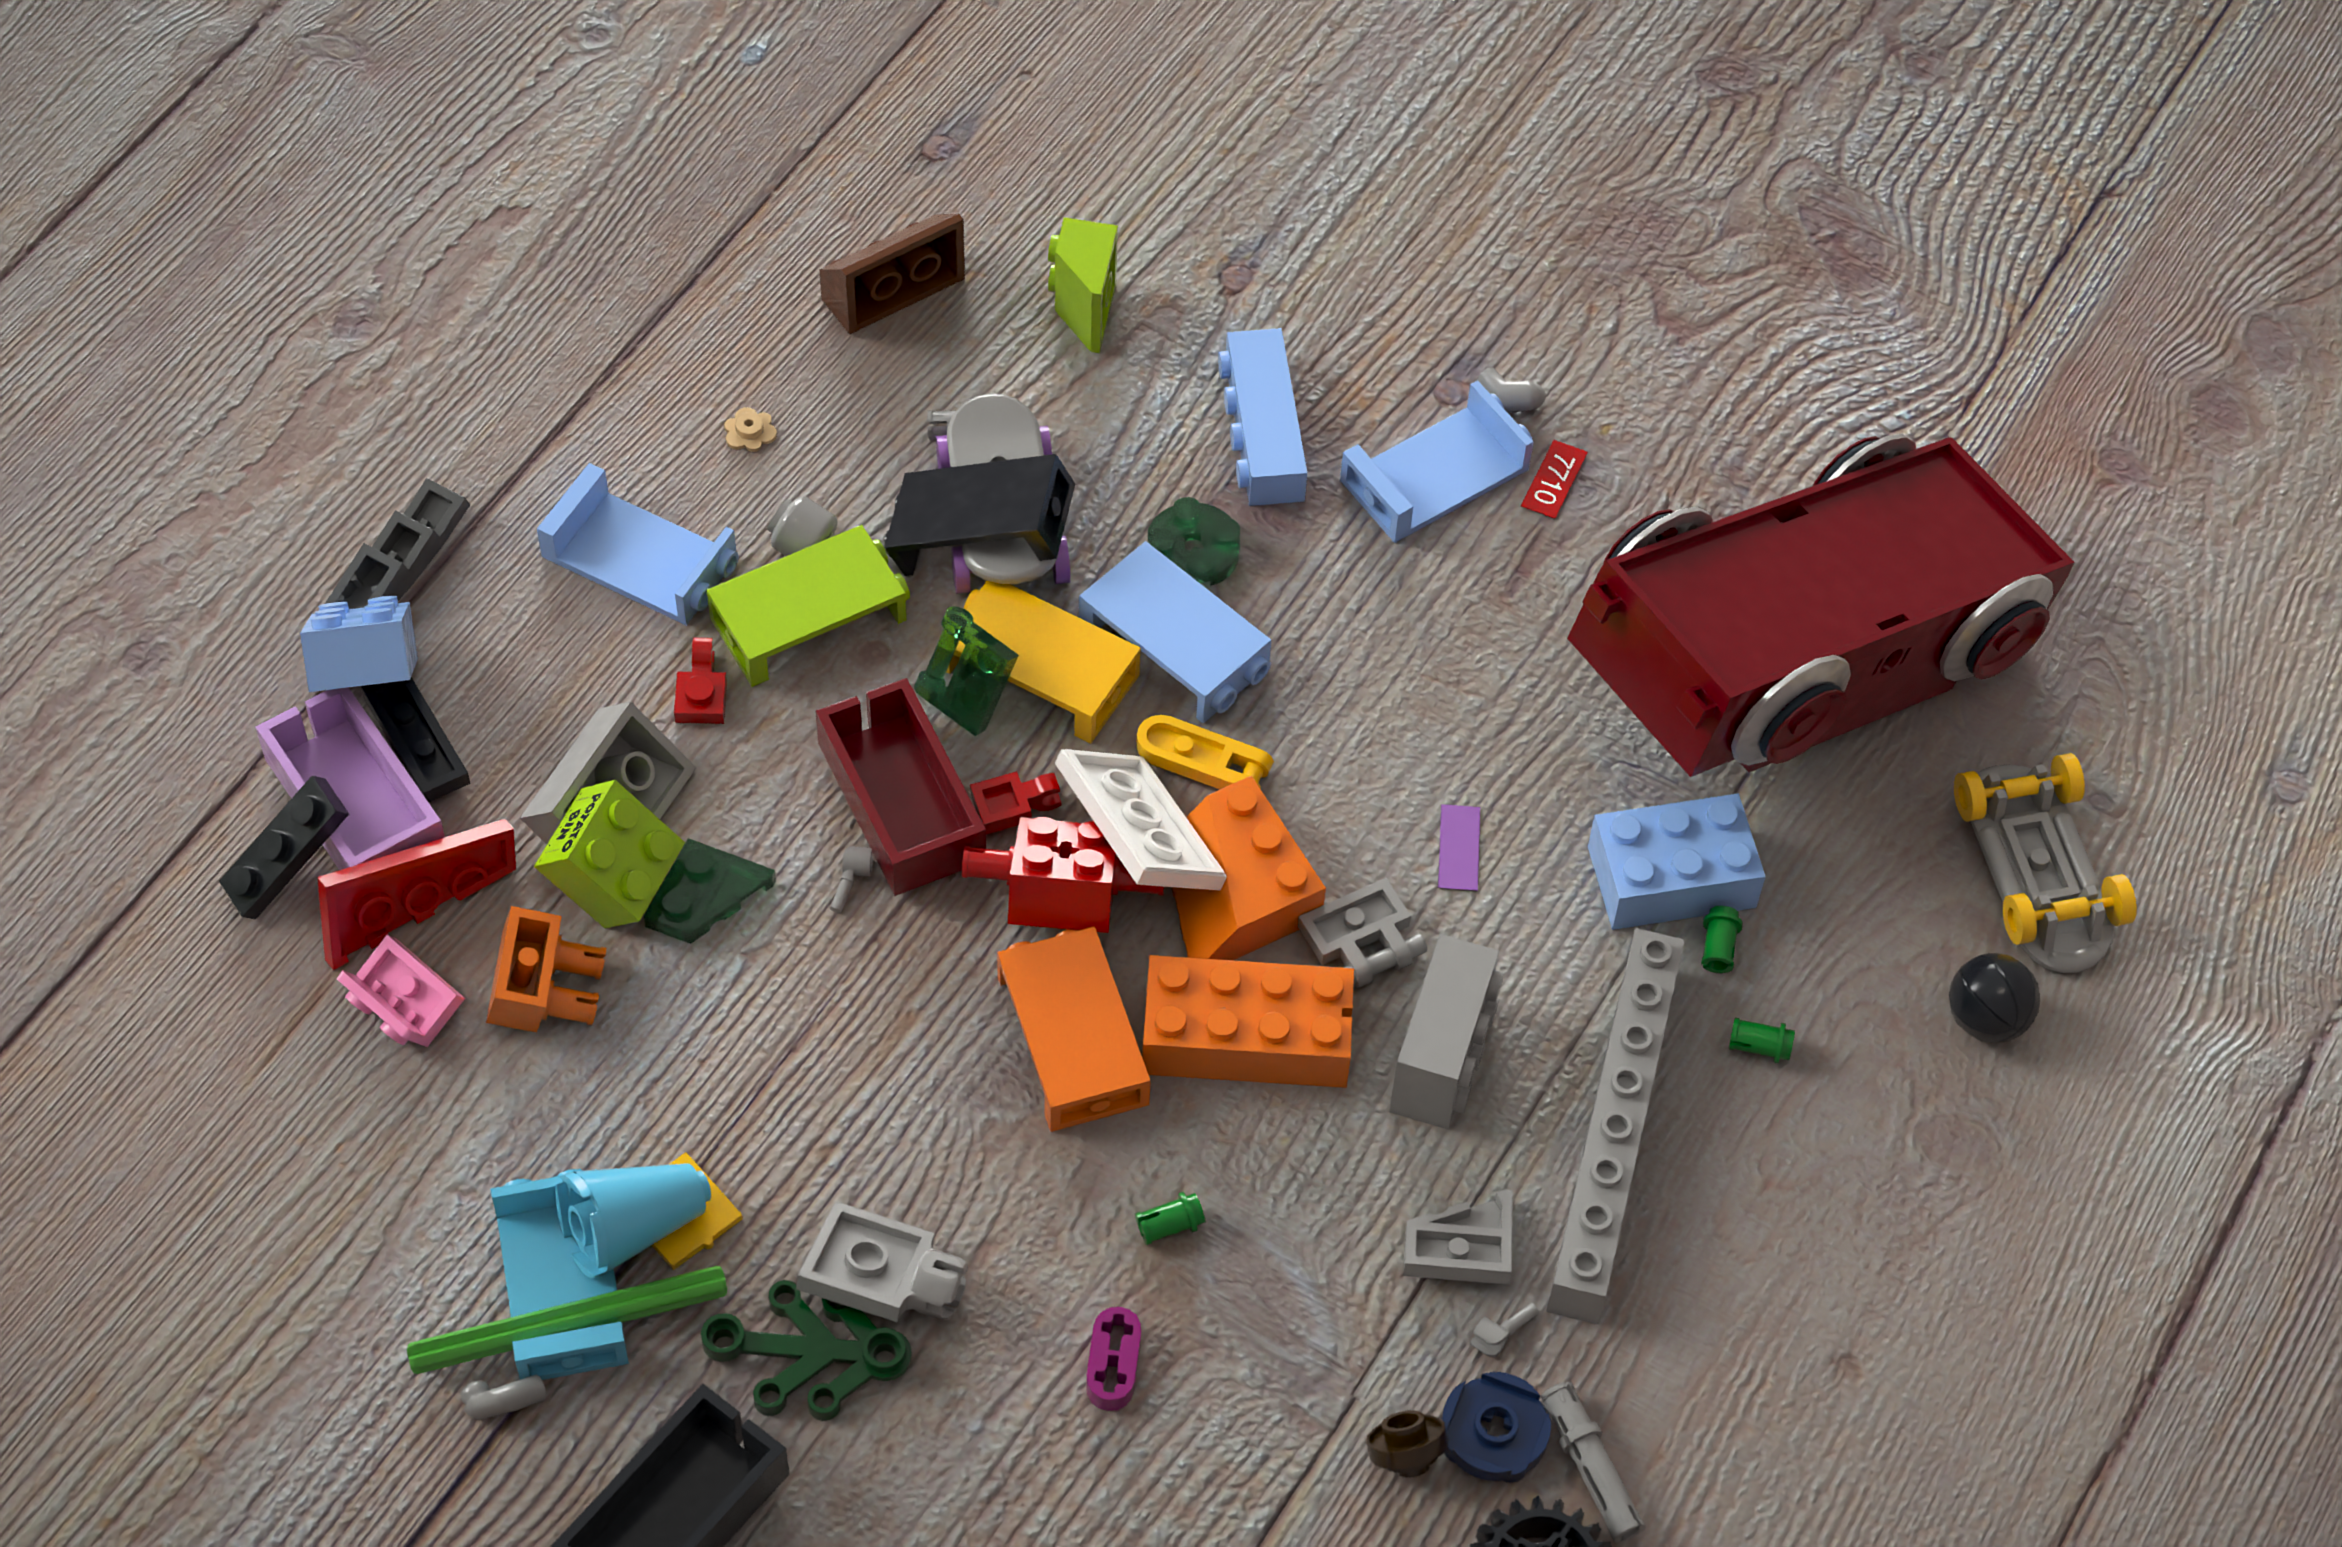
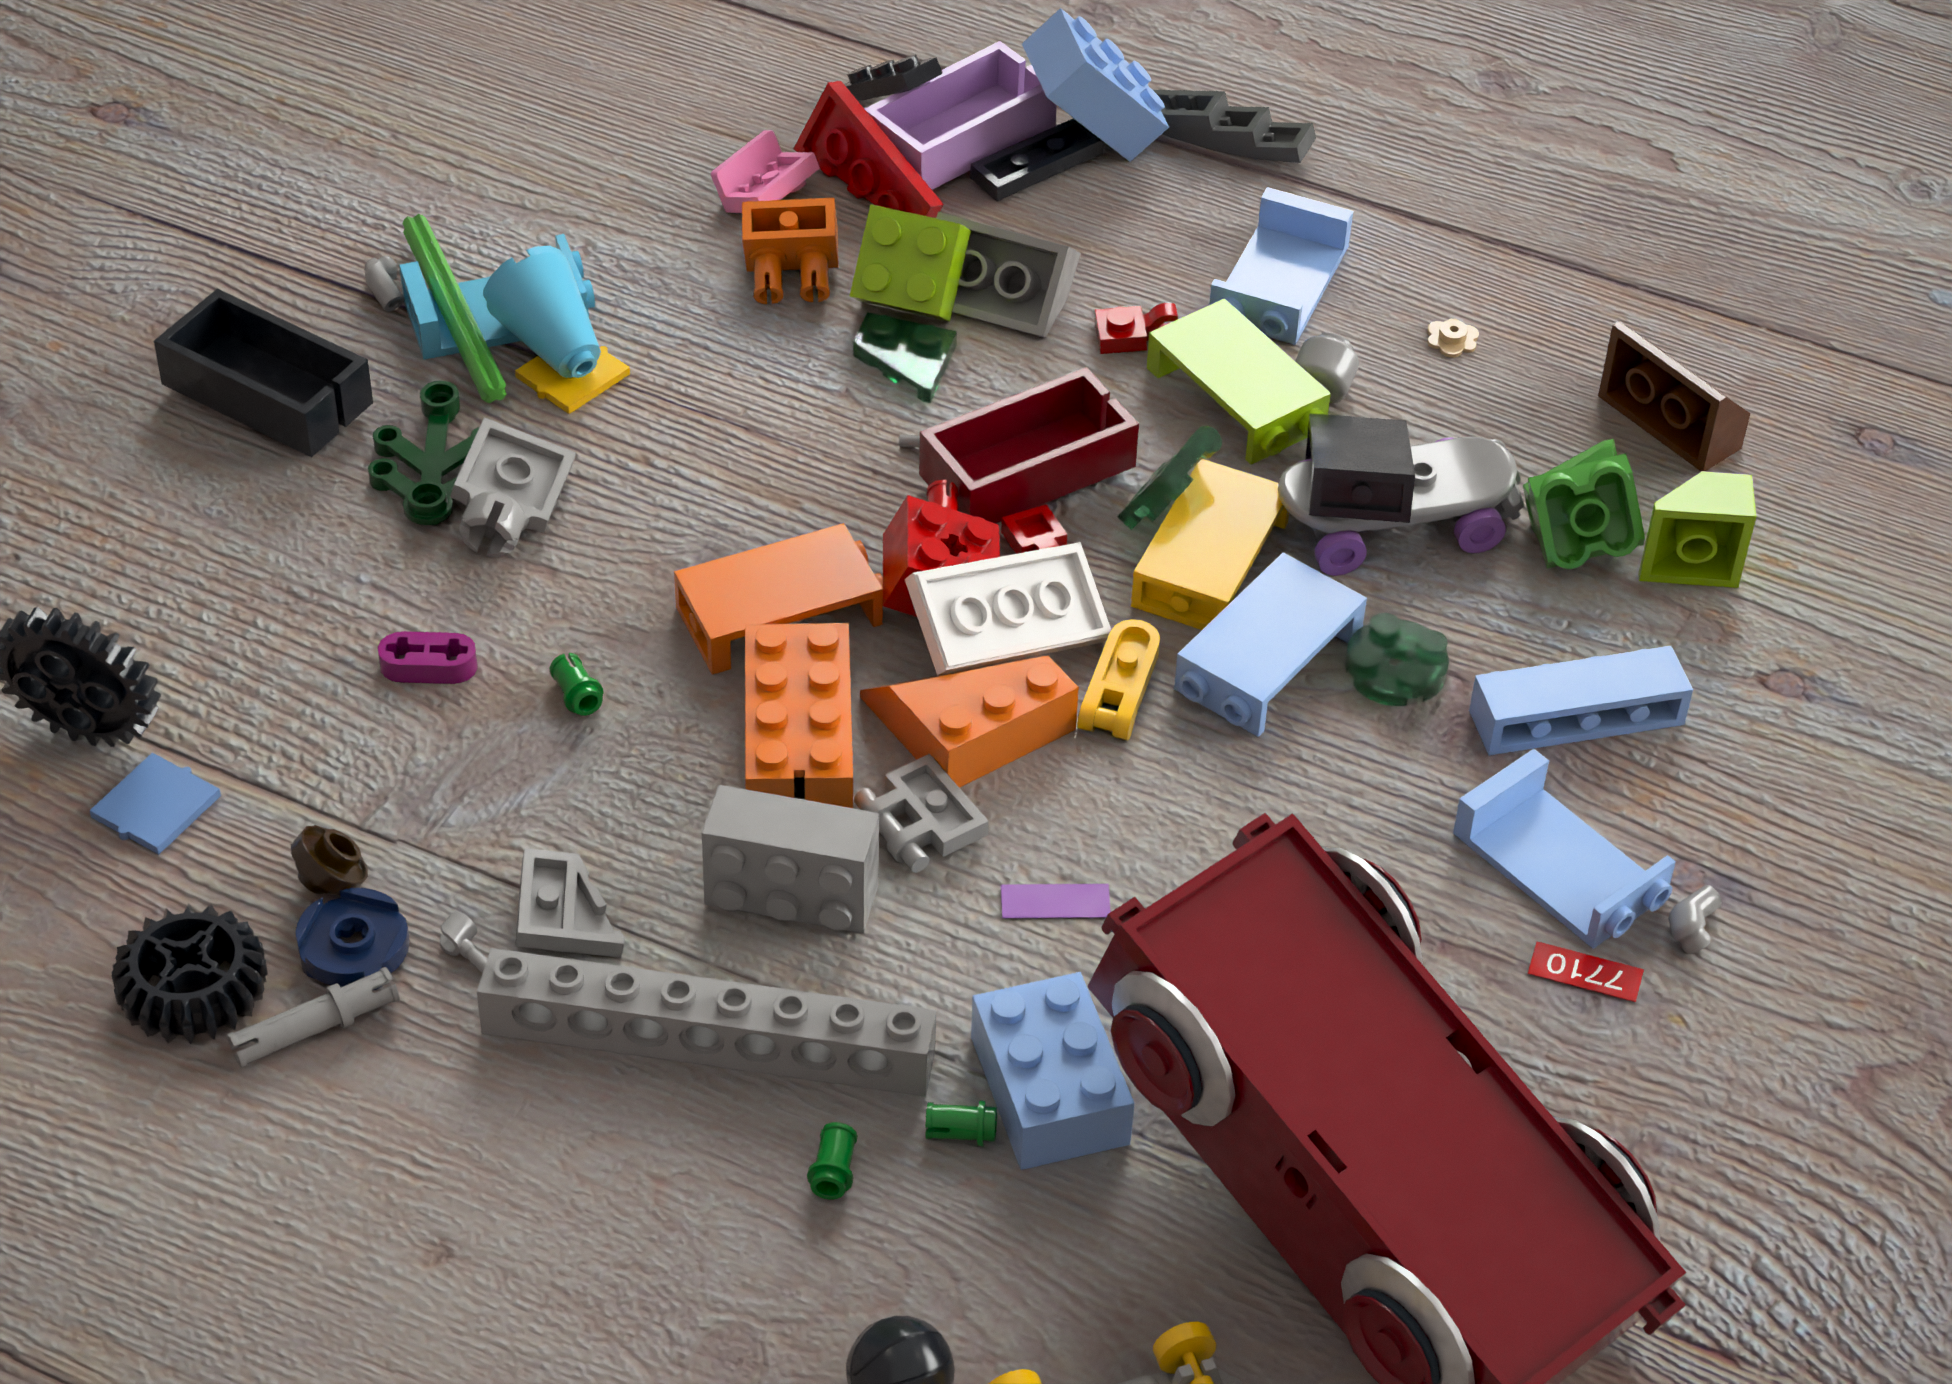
camera: 85 degrees right, 10 degrees down
(1042, 358) = (1585, 508): none -> bright green piece

